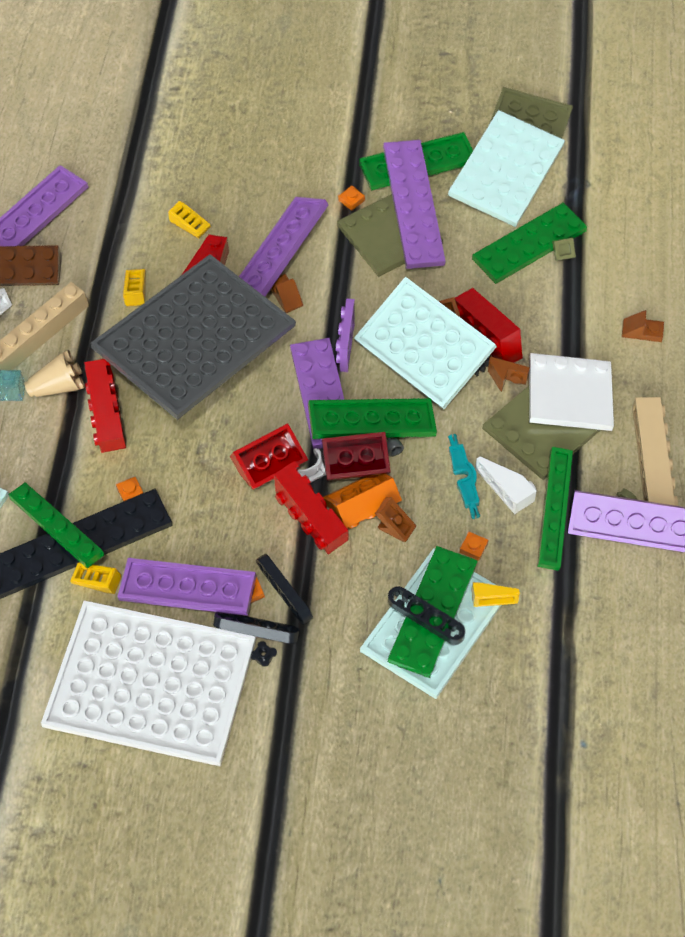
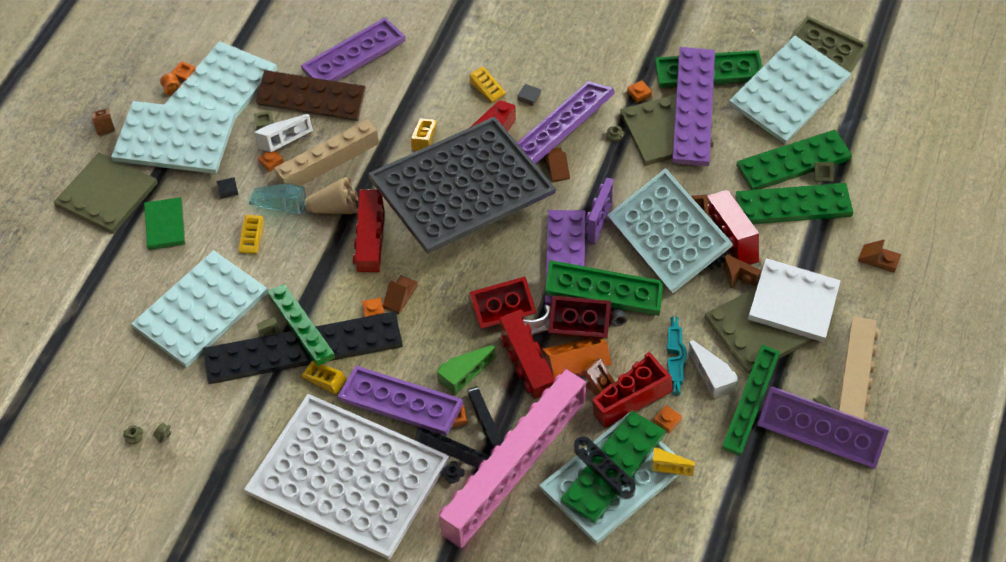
camera: 15 degrees right, 5 degrees down
(20, 535) = (268, 327): none -> olive plate
(154, 468) = (399, 293): none -> dark orange slope
(236, 222) = (529, 94): none -> dark grey tile
(244, 538) = (463, 368): none -> bright green slope
(324, 626) = (512, 458): none -> bright pink brick
(338, 252) = (614, 133): none -> olive plate
(432, 523) = (632, 391): none -> red wedge
(544, 288) = (795, 203): none -> green plate

